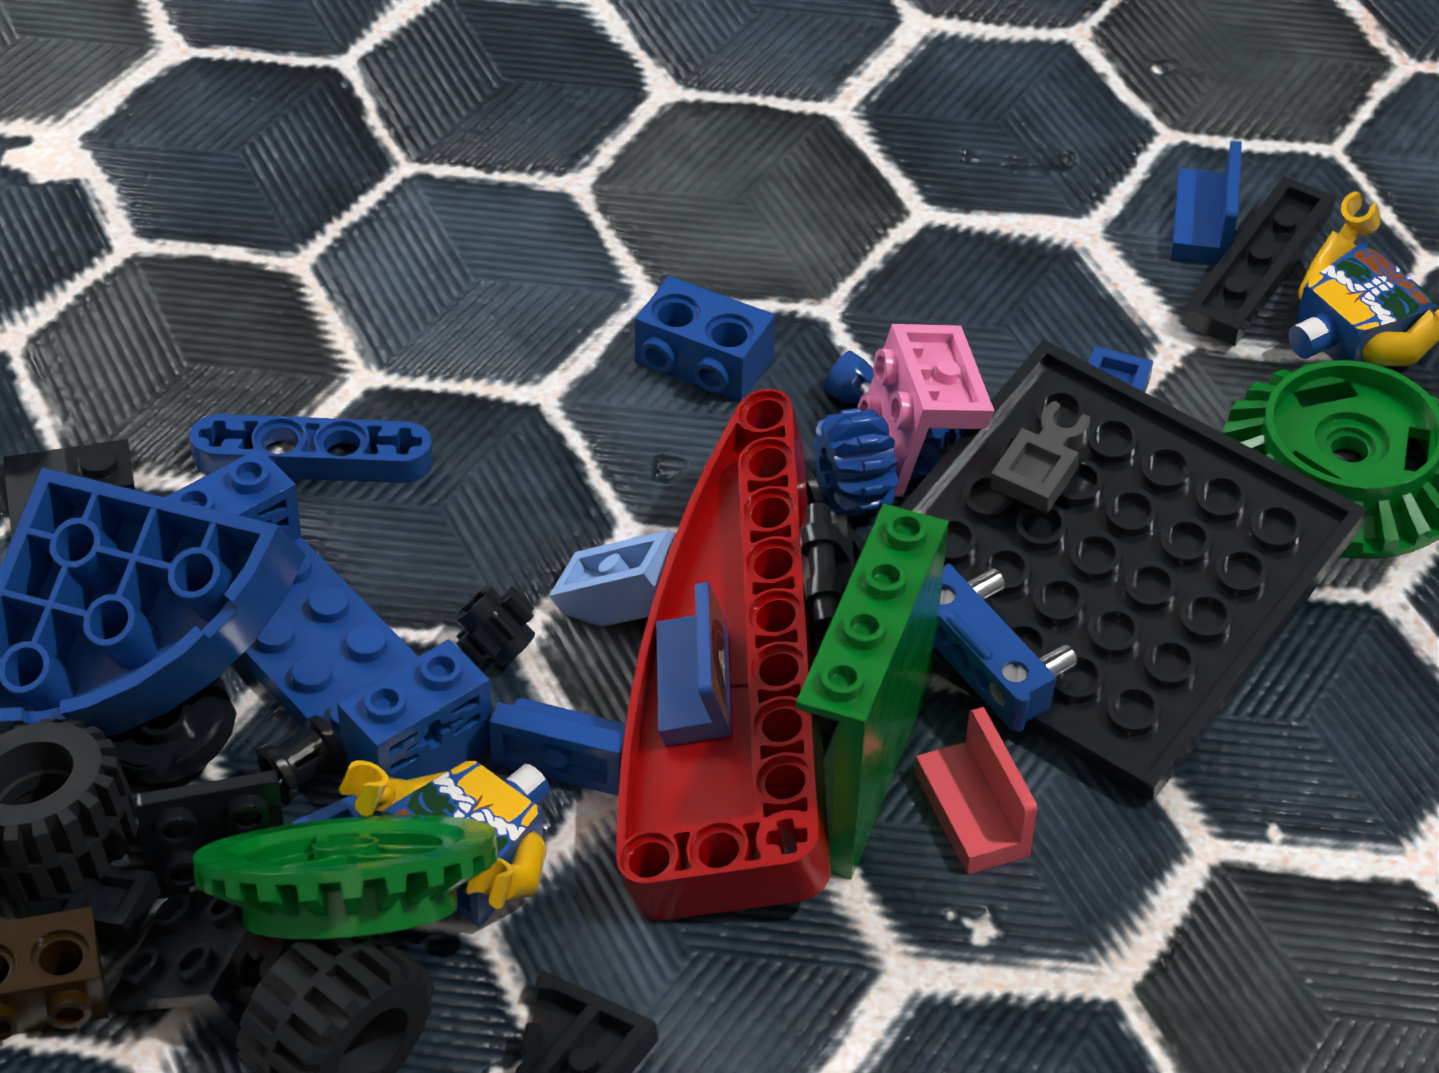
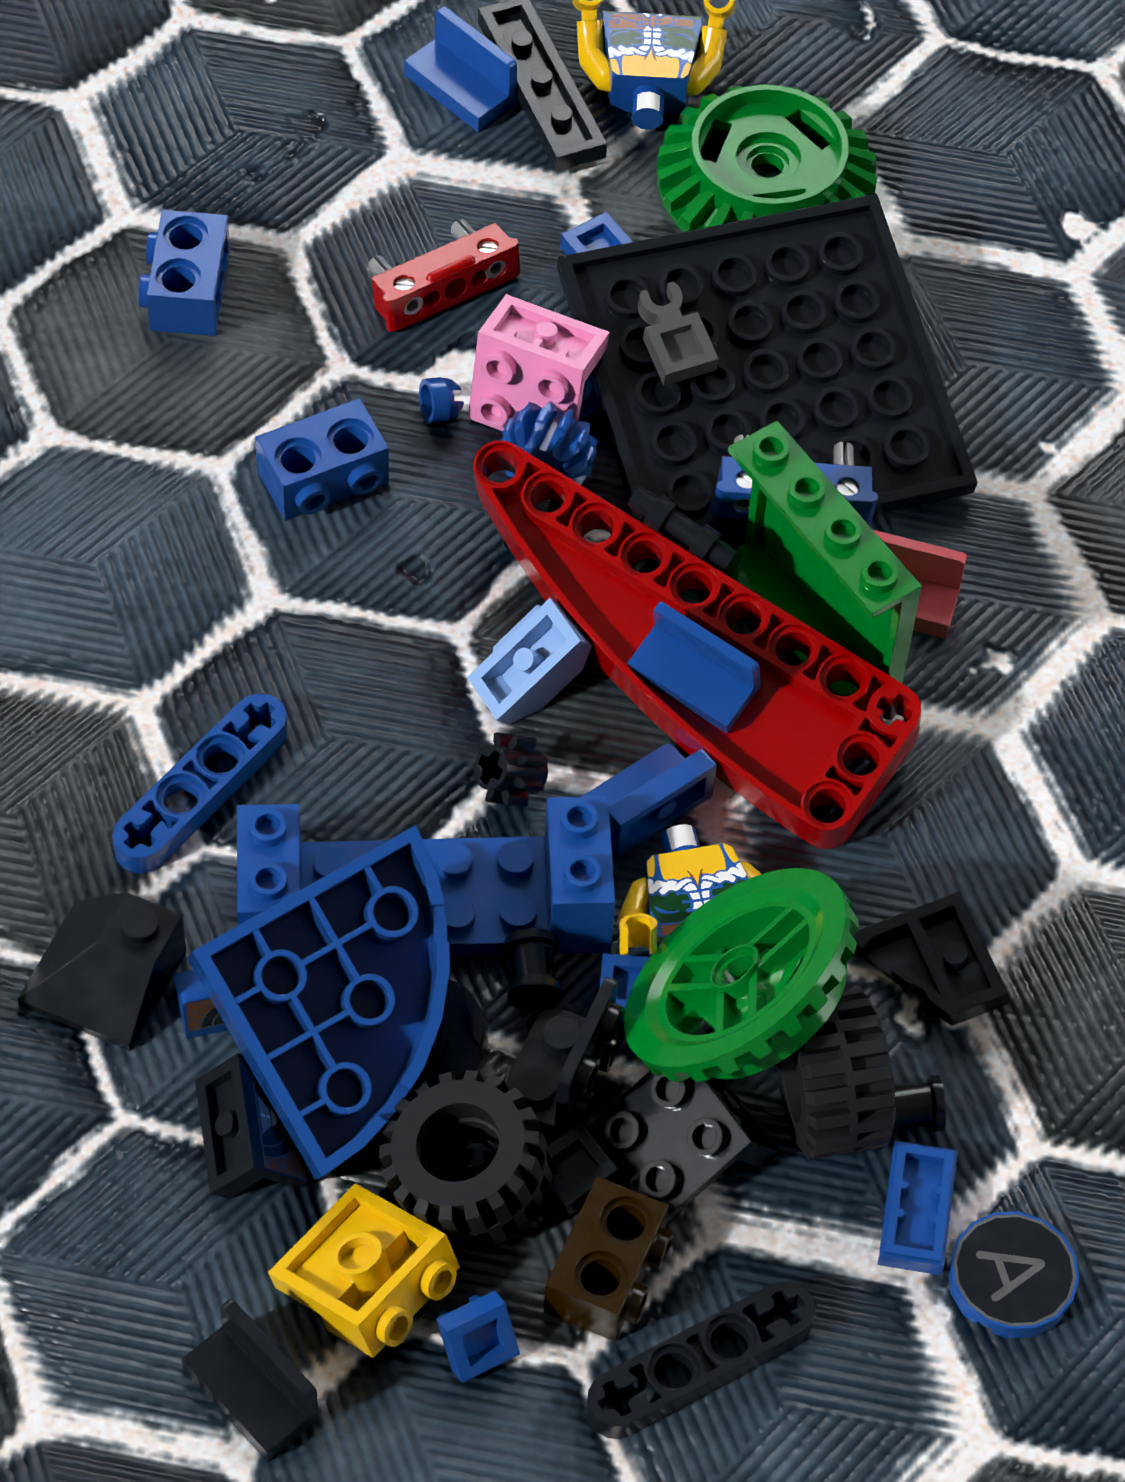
camera: 55 degrees left, 10 degrees up
(808, 162) = (186, 272): none -> blue brick
(986, 311) = (444, 275): none -> red piece

